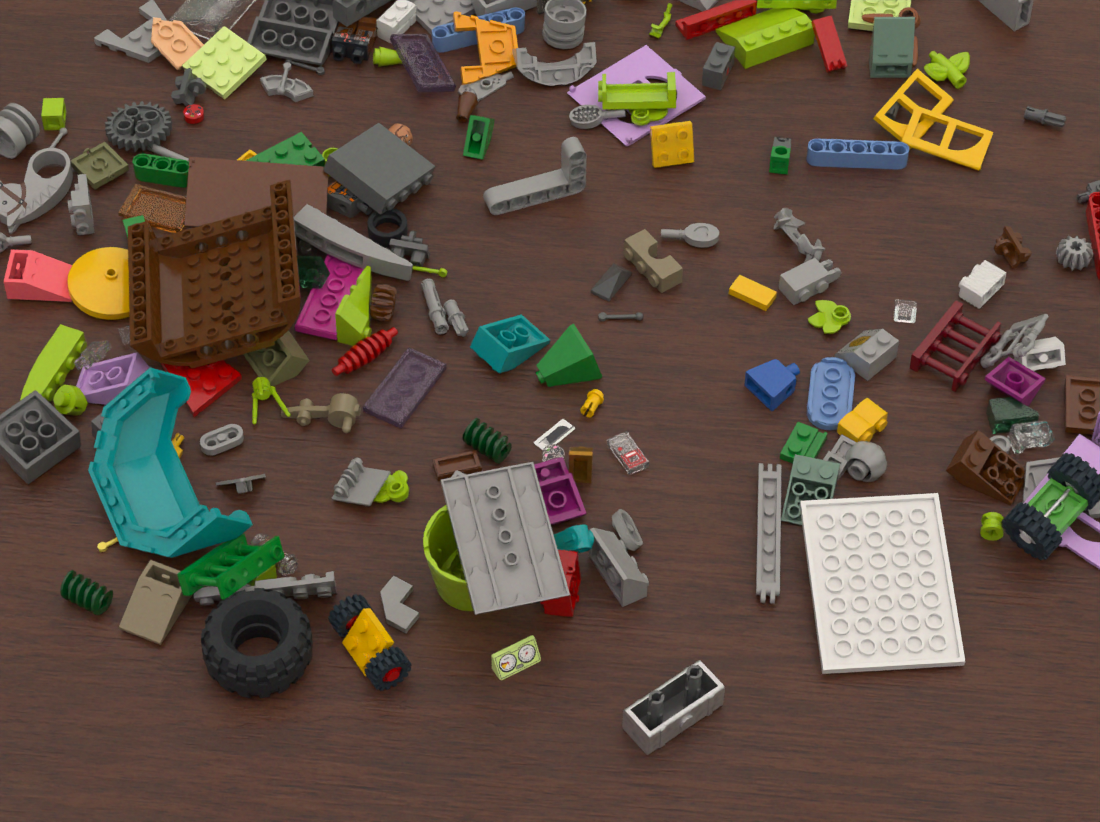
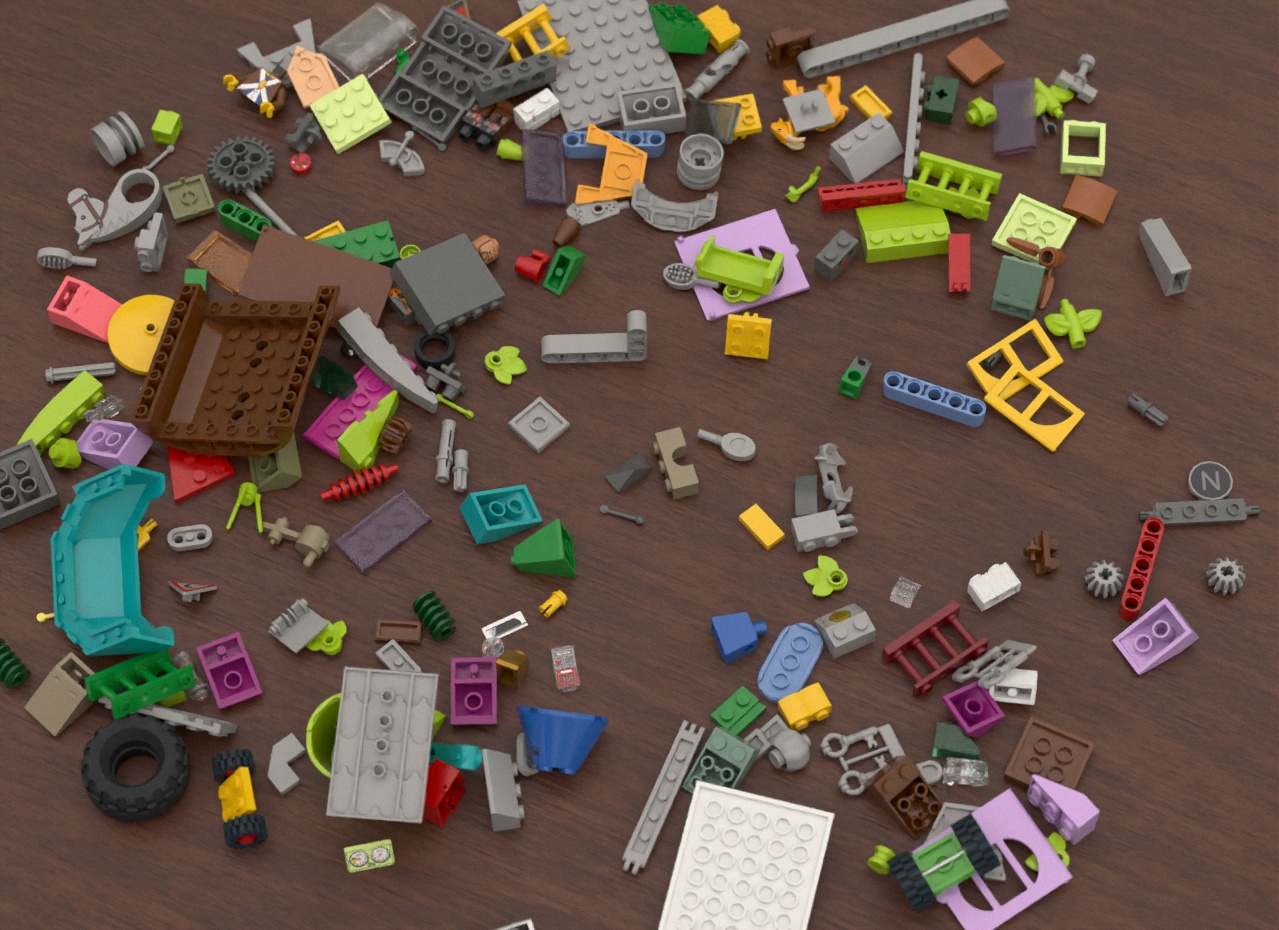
camera: 20 degrees right, 10 degrees up
(46, 333) = (69, 373): none -> light grey axle
(132, 61) = (261, 88): none -> torso
(253, 10) = (403, 58): none -> green arm
(309, 538) = (229, 670): none -> magenta slope
(447, 140) = (532, 267): none -> red piece
(457, 224) = (507, 364): none -> lime plate
(511, 264) = (539, 425): none -> light grey tile
(654, 499) = (559, 737): none -> blue cone
(782, 255) = (806, 495): none -> dark grey slope
(929, 431) = (890, 740): none -> light grey piece

